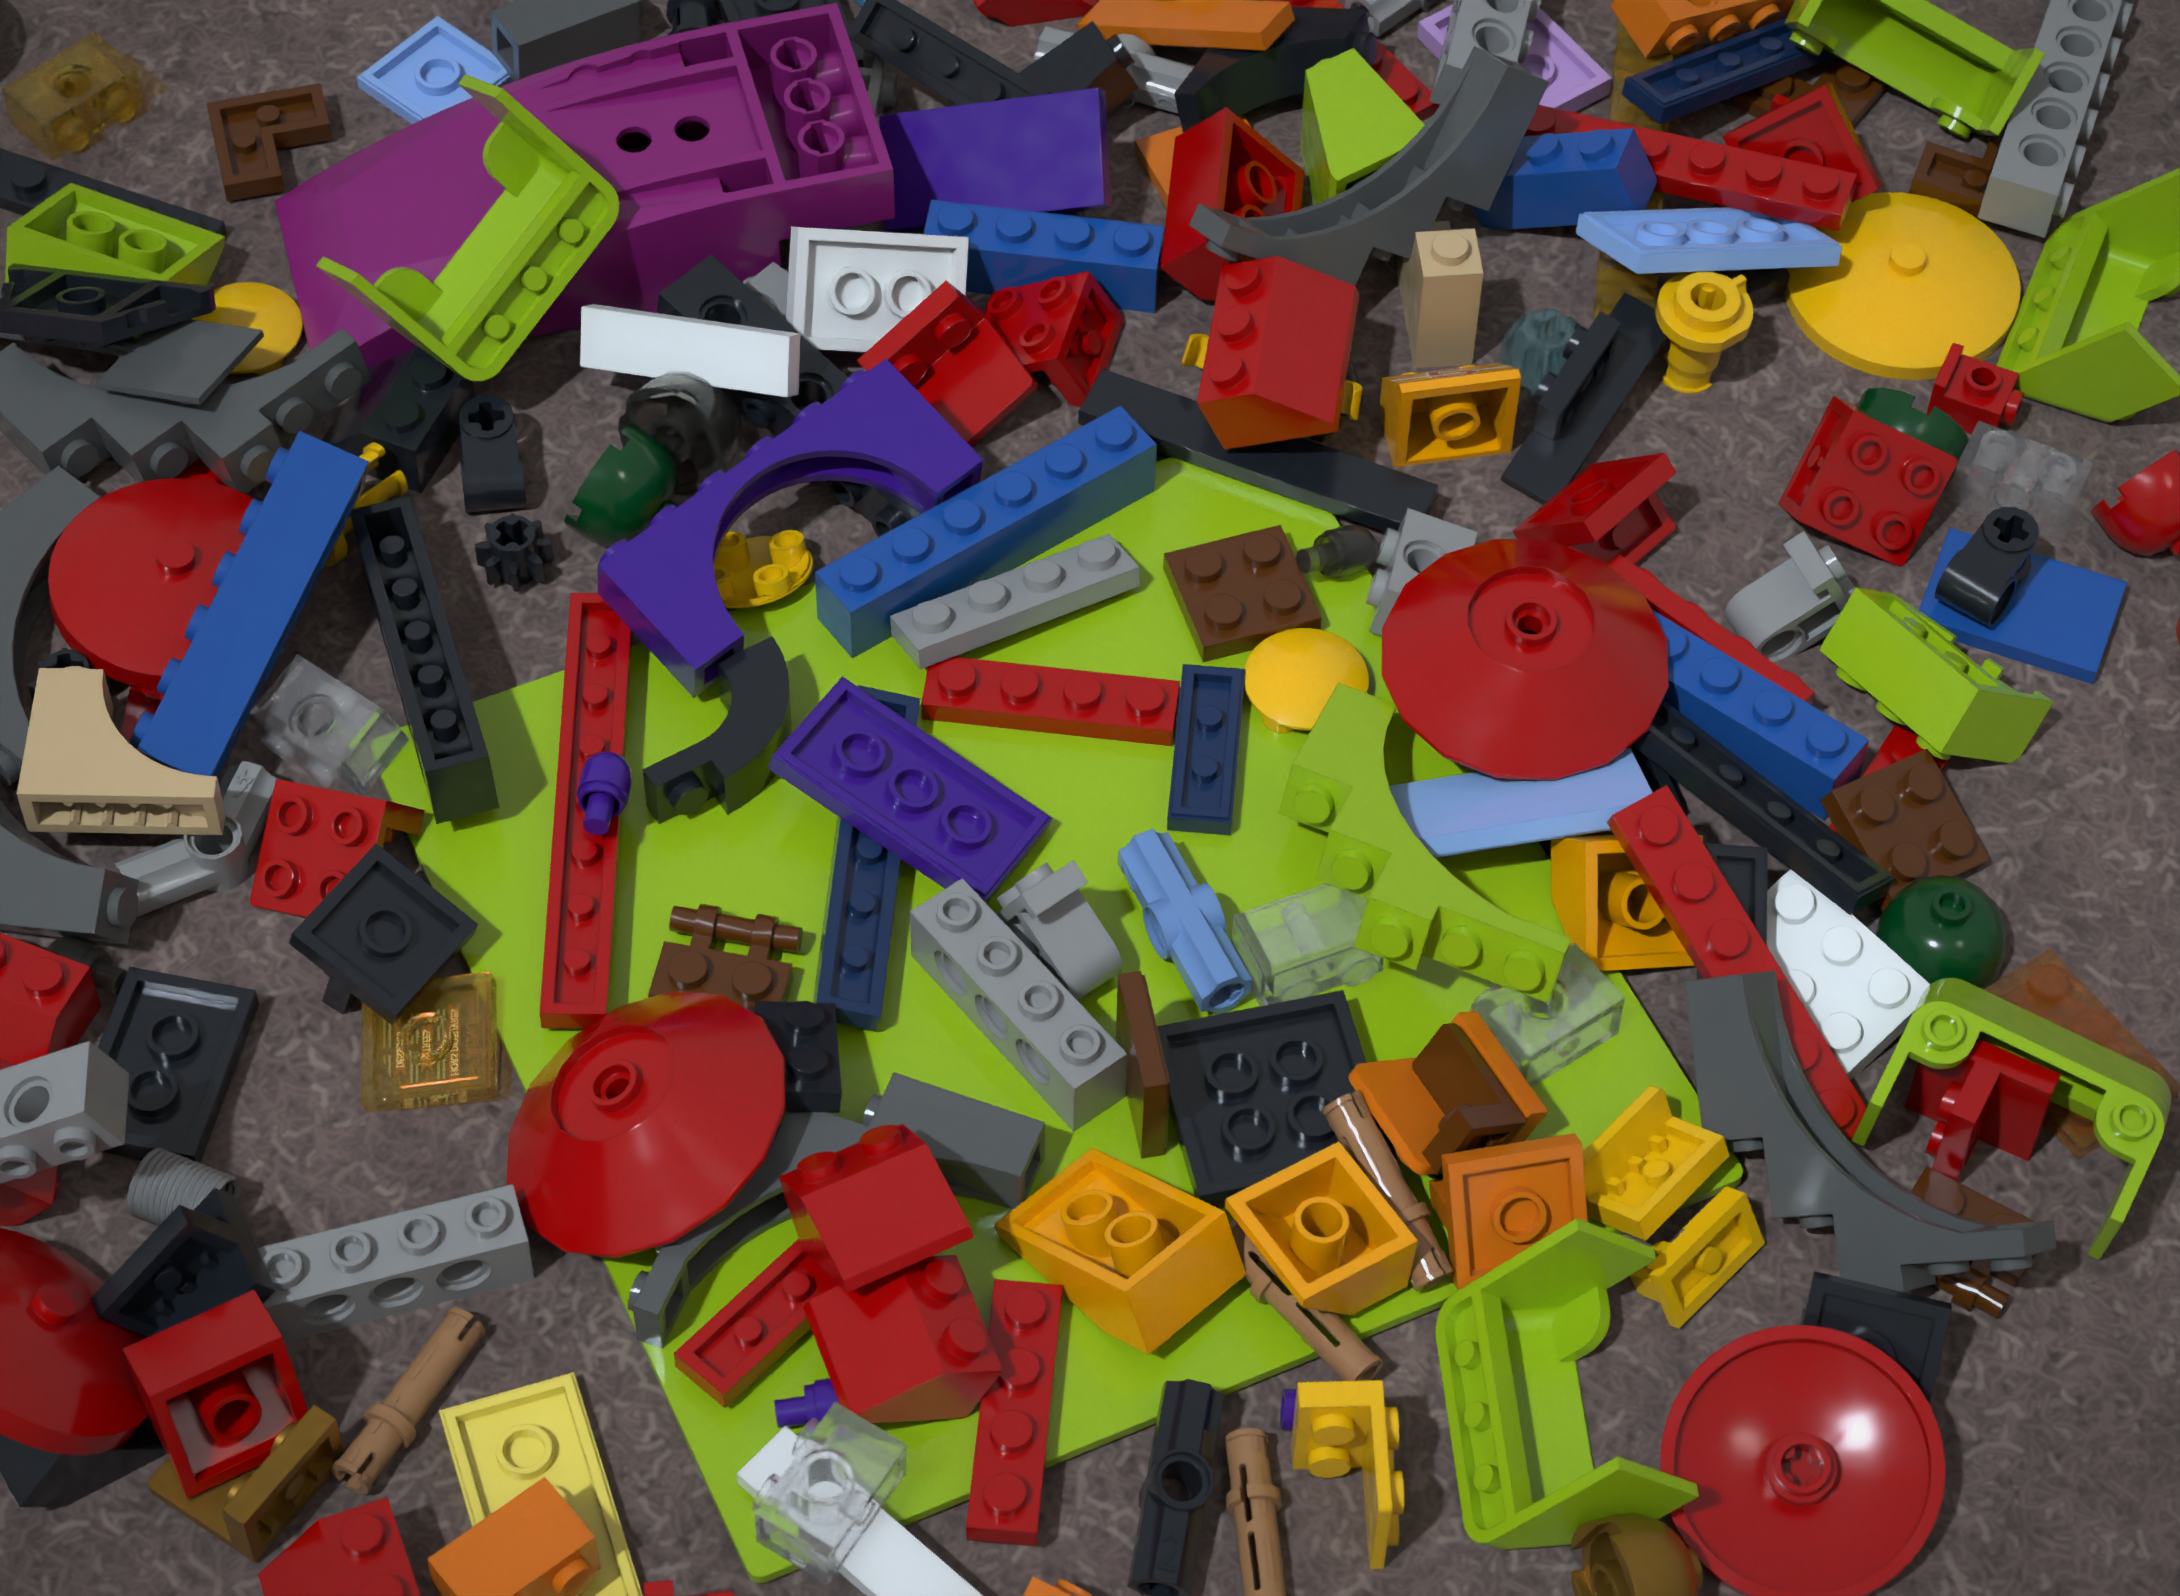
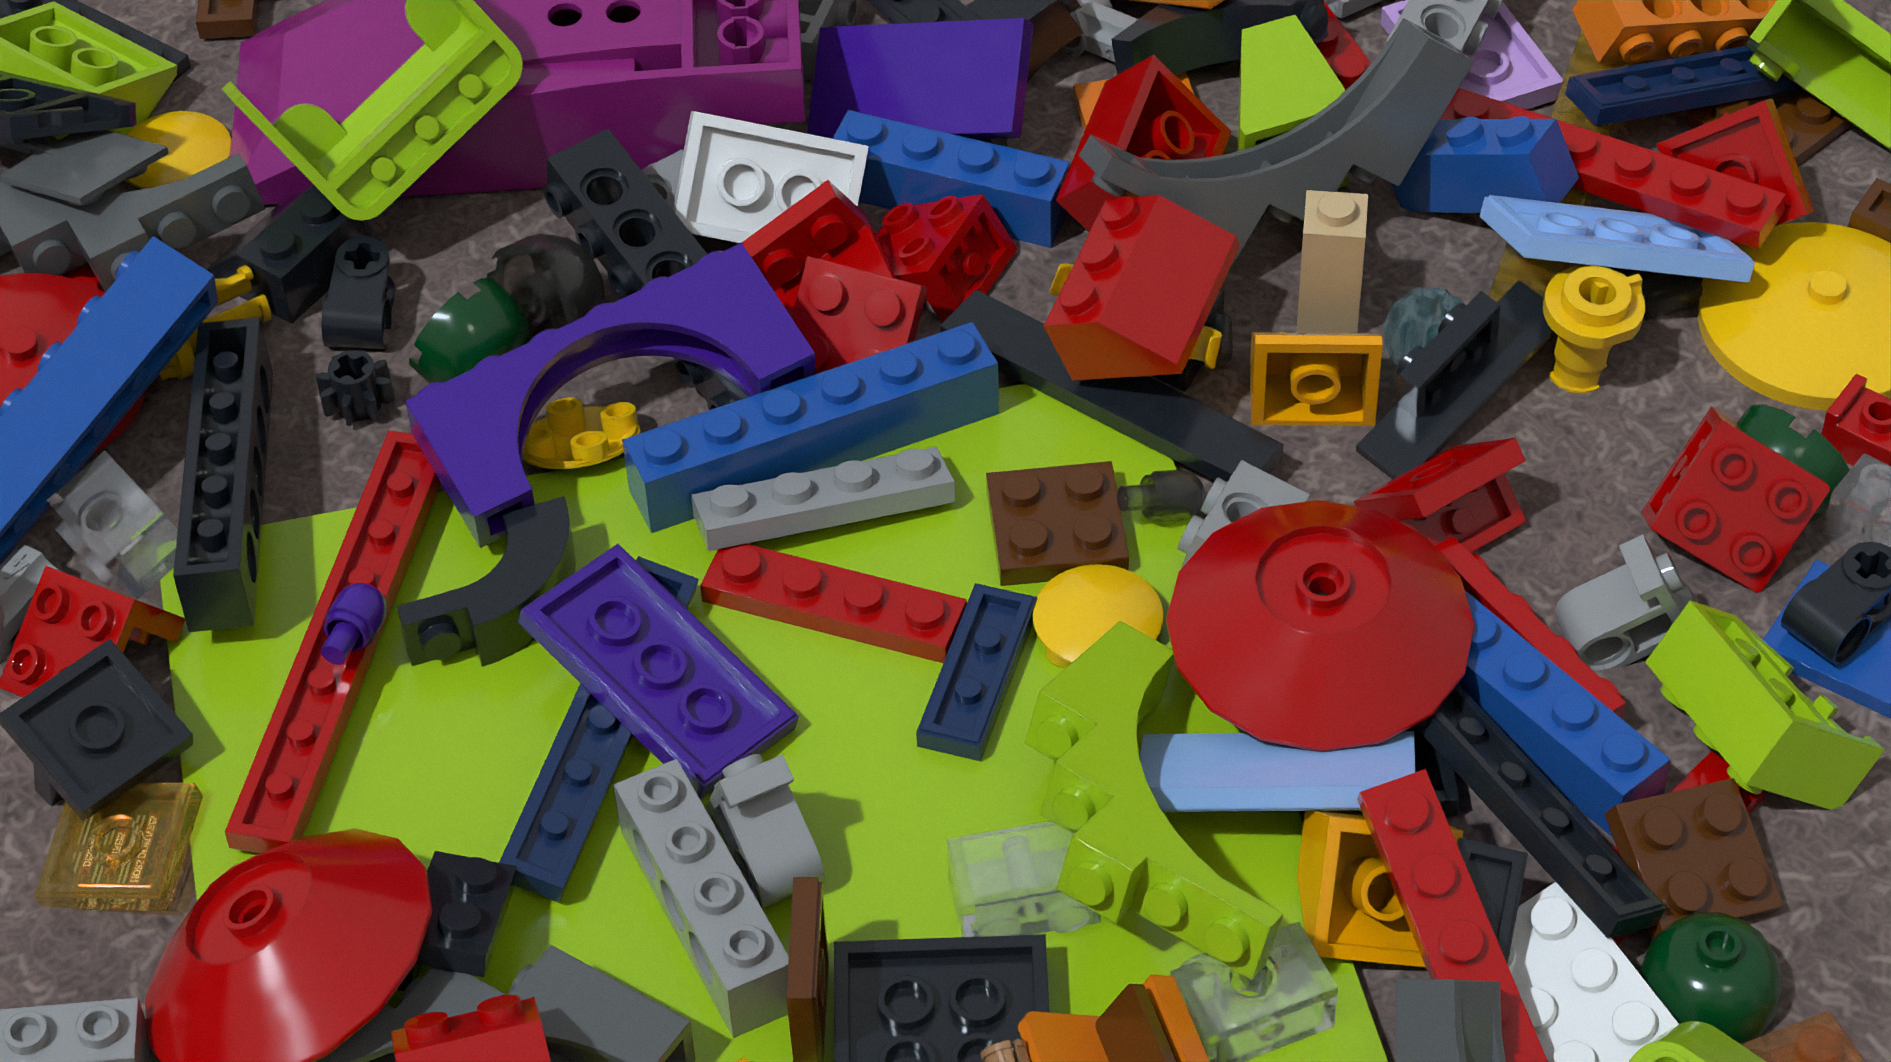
camera: 15 degrees right, 5 degrees down
(716, 351) = (584, 218): white tile -> none
(735, 976) = (425, 823): reddish brown plate -> none
(999, 410) = (854, 312): none -> red plate
(1184, 922) = (902, 840): medium blue piece -> none

